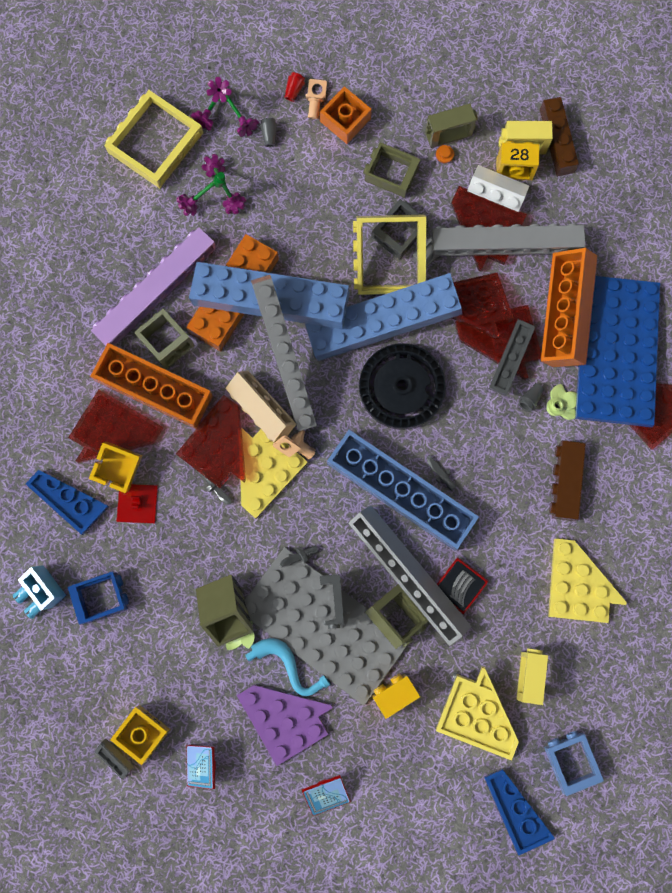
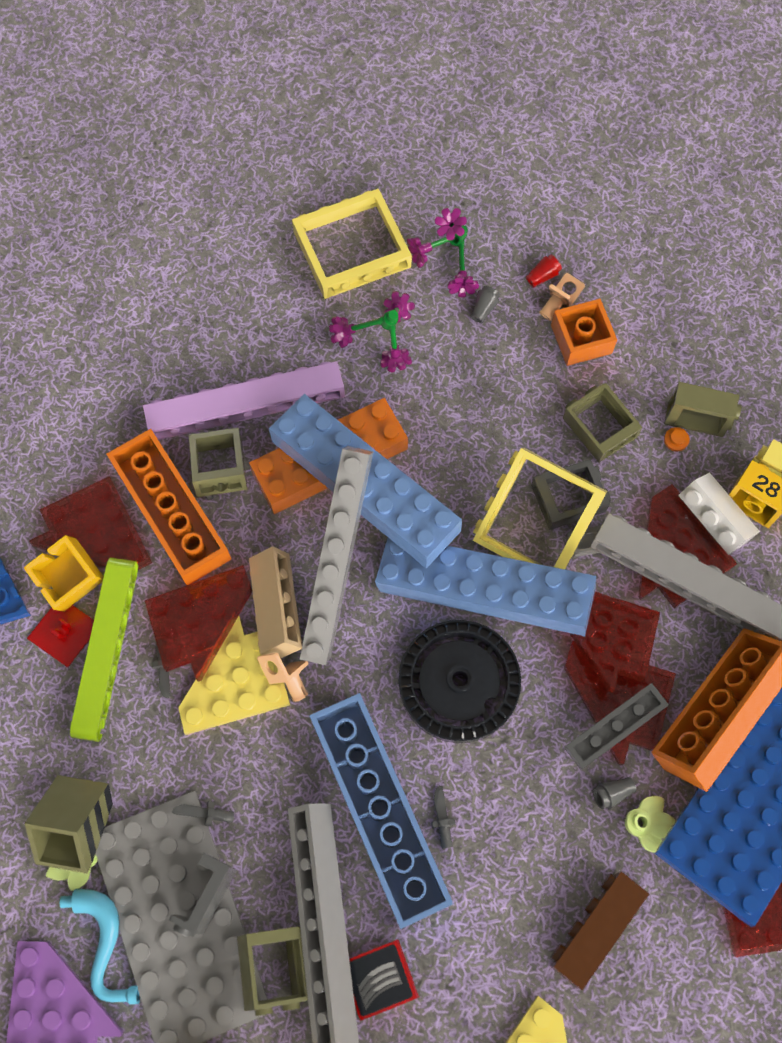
camera: 30 degrees right, 10 degrees down
(171, 497) = (104, 649): none -> lime beam

